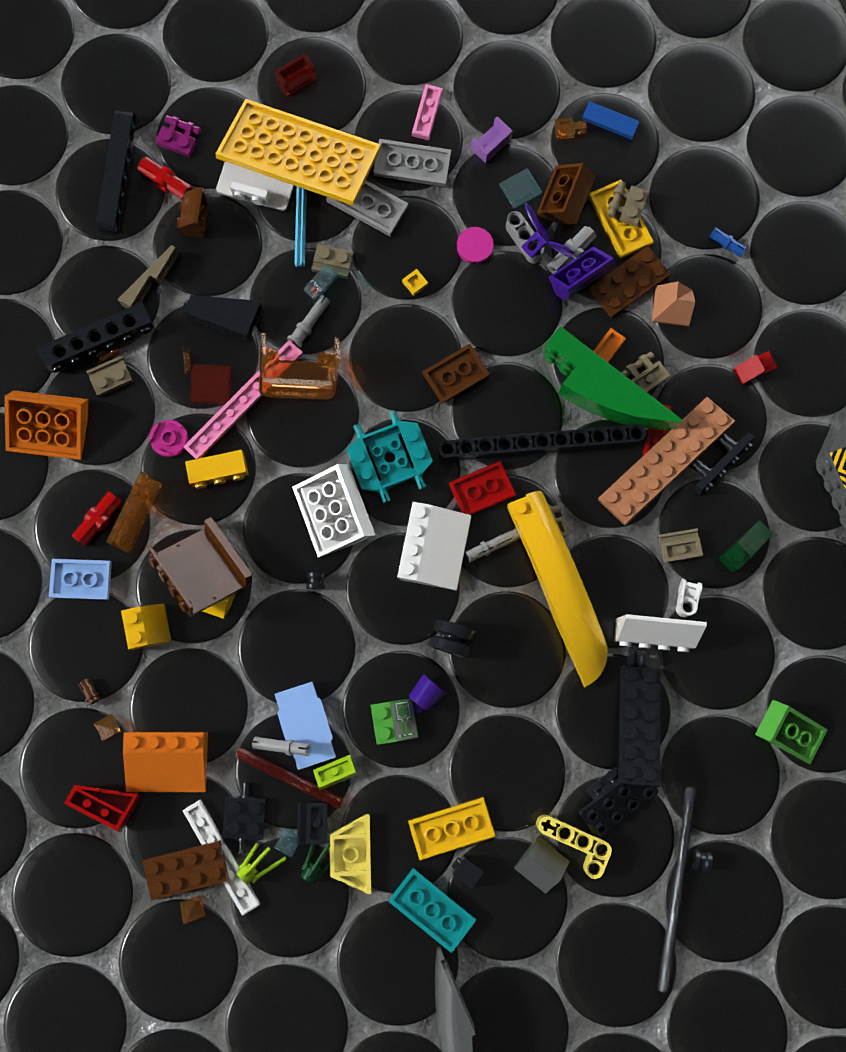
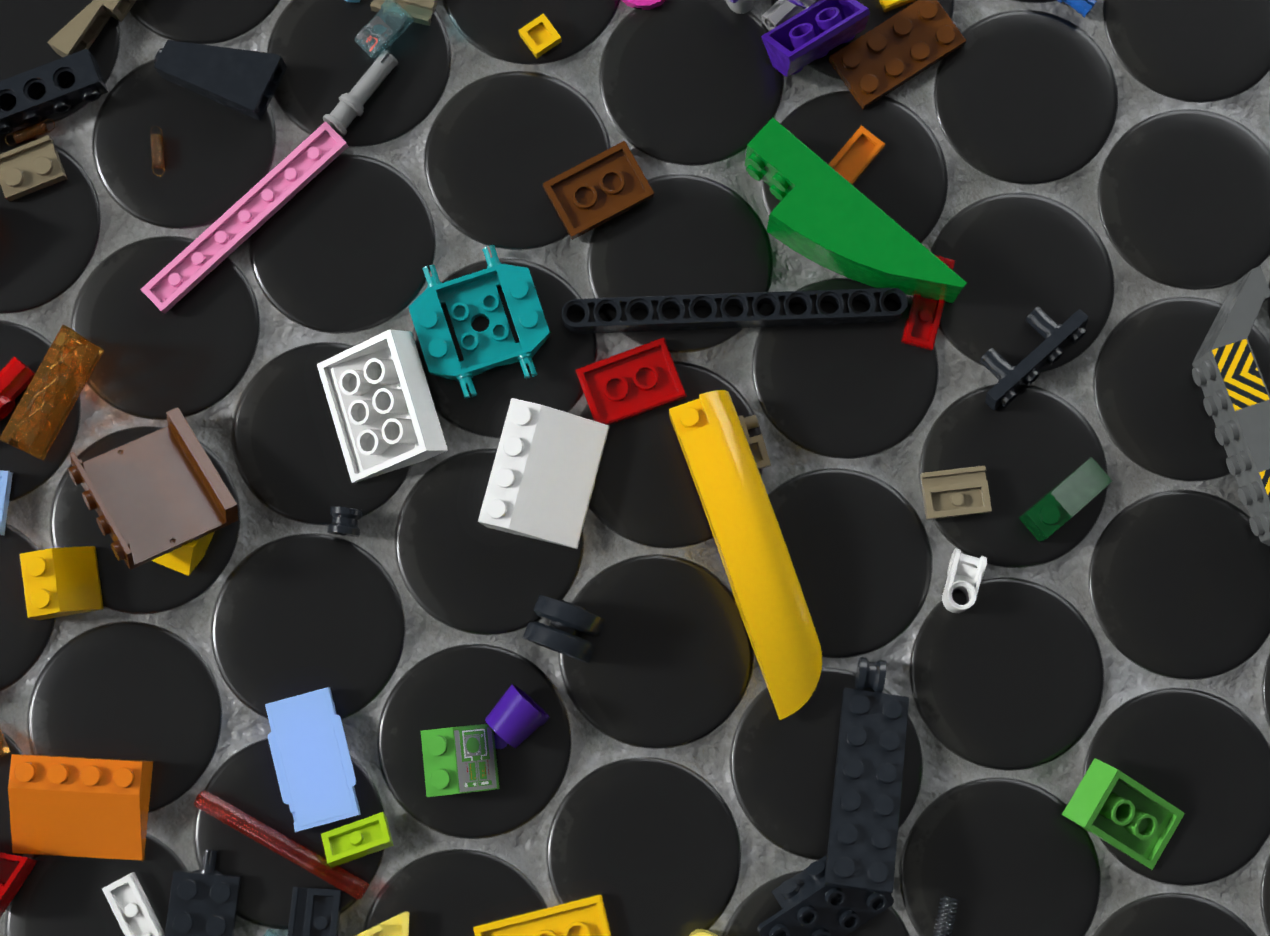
camera: 10 degrees right, 0 degrees up
(168, 438) = (118, 274): dark pink tile -> none
(210, 384) = (193, 188): clear red tile -> none
(217, 469) = (193, 328): yellow brick -> none
(289, 747) = (281, 793): light grey pin -> none
(298, 378) = (334, 184): clear orange windscreen -> none
(486, 548) = (642, 476): light grey pin -> none
(651, 376) = (920, 212): dark tan plate -> none
(658, 632) = (907, 635): white slope -> none
(666, 461) = (940, 350): nougat plate -> none
(673, 304) = (967, 91): nougat slope -> none
(755, 367) = (1099, 202): red slope -> none

